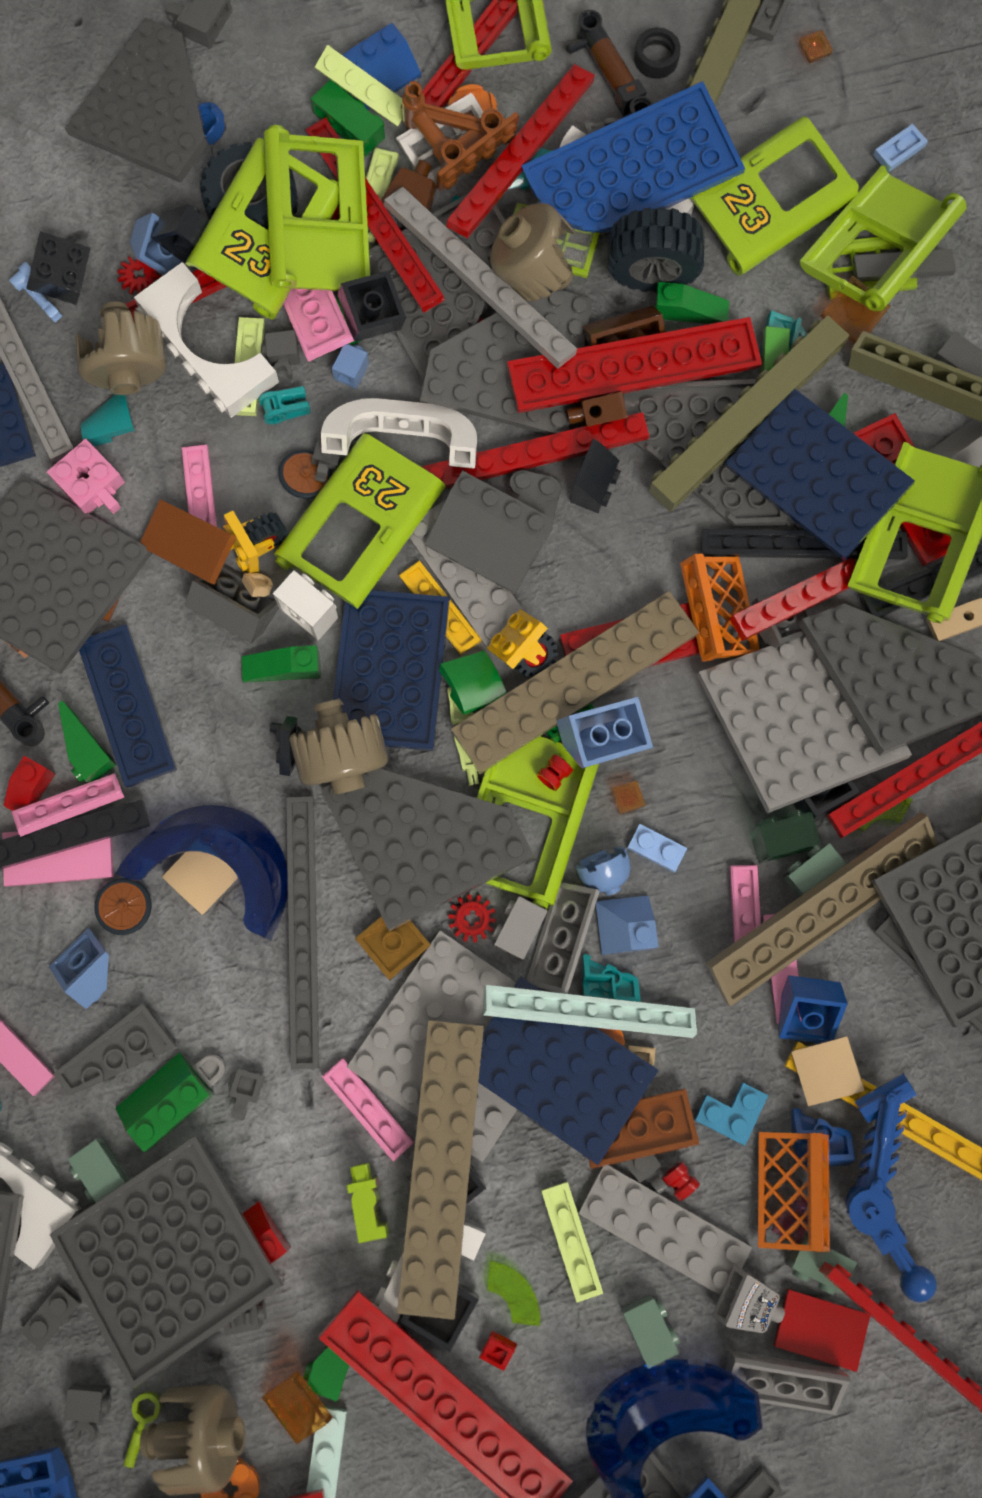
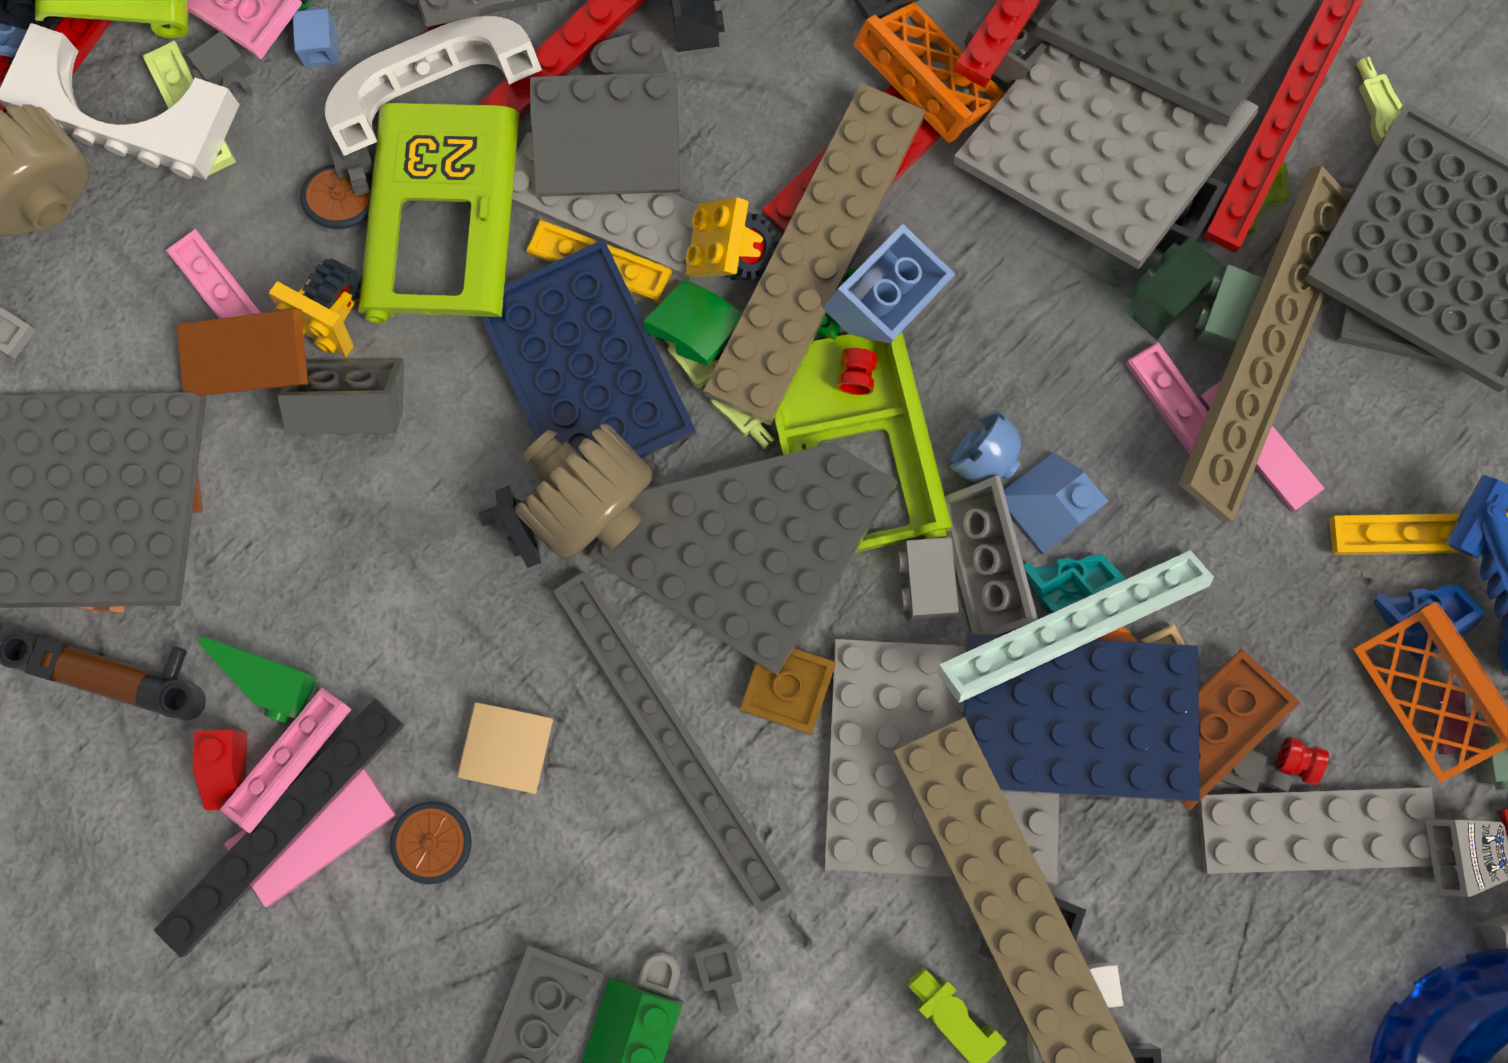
camera: 25 degrees left, 0 degrees up
(83, 969) = (428, 948): medium blue slope -> none
(94, 491) = (69, 351): bright pink hinge -> none
(108, 421) = (53, 271): teal slope -> none
(126, 706) = (287, 598): dark blue plate -> none
(235, 840) = (516, 678): clear blue windscreen -> none
(257, 584) = (360, 358): tan tile -> none
(279, 401) = (262, 128): teal piece -> none
(282, 664) = (449, 436): green slope -> none
(306, 604) = (436, 346): white brick -> none
(368, 1109) = (881, 905): bright pink tile -> none
(464, 910) = (868, 588): red gear -> none
(516, 1292) = (1190, 1012): clear neon green tile -> none
(572, 1241) = (1221, 911): yellowish green plate -> none
(628, 797) = (960, 351): clear orange plate -> none
(650, 1331) = (1378, 959): sand green brick -> none
(657, 848) = (1030, 391): light blue plate -> none
(733, 1121) = (1318, 652): dark azure plate -> none
(819, 1005) = (1332, 458): blue slope -> none
(828, 1071) = (1391, 527): tan slope -> none

